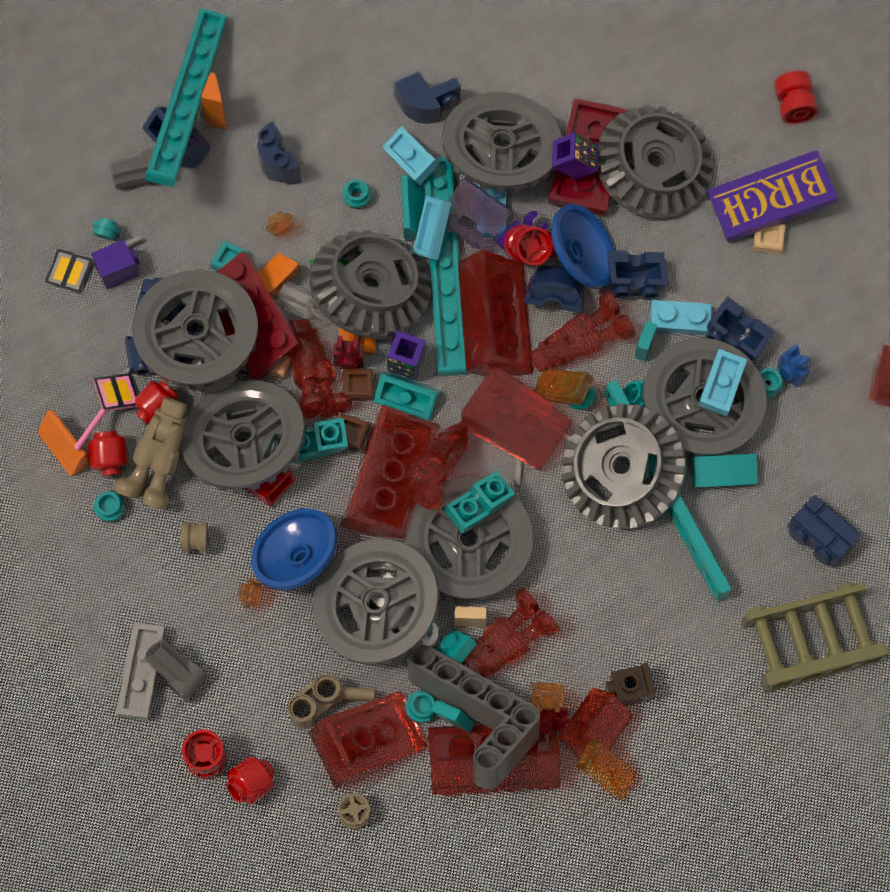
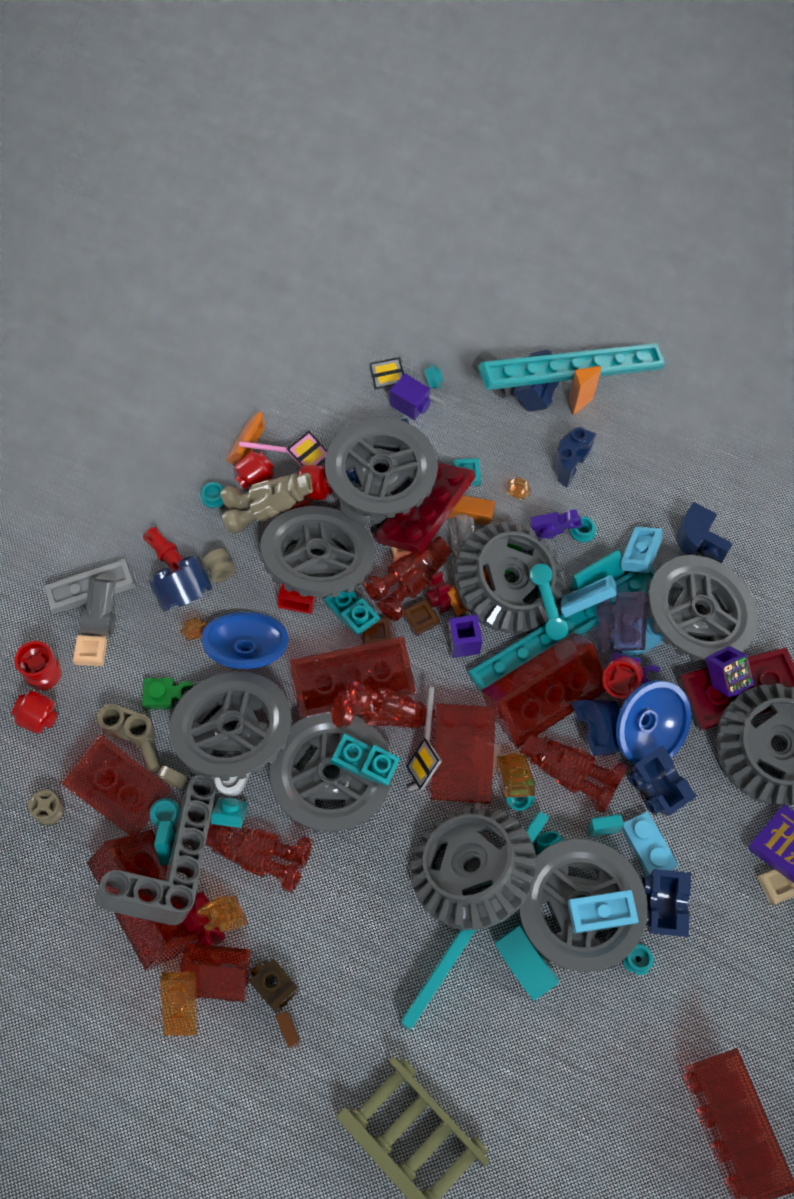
camera: 60 degrees right, 5 degrees down
(147, 580) = (165, 551): none -> red pin
(197, 582) = (180, 585): none -> dark blue cylinder
(210, 702) = (90, 650): none -> light nougat tile
(296, 655) = (161, 692): none -> green plate
(339, 216) = (551, 524): none -> dark purple plate
(391, 683) = (172, 777): none -> dark tan tile
(394, 253) = (555, 627): none -> teal bar
(406, 395) = (435, 658): teal slope -> none
(470, 617) = (264, 810): tan tile -> none
(504, 454) = (425, 759): none -> piece
(676, 692) = (288, 1030): none -> reddish brown tile
(793, 366) = (666, 973): blue plate -> none
(823, 531) = (523, 1091): dark blue brick -> none

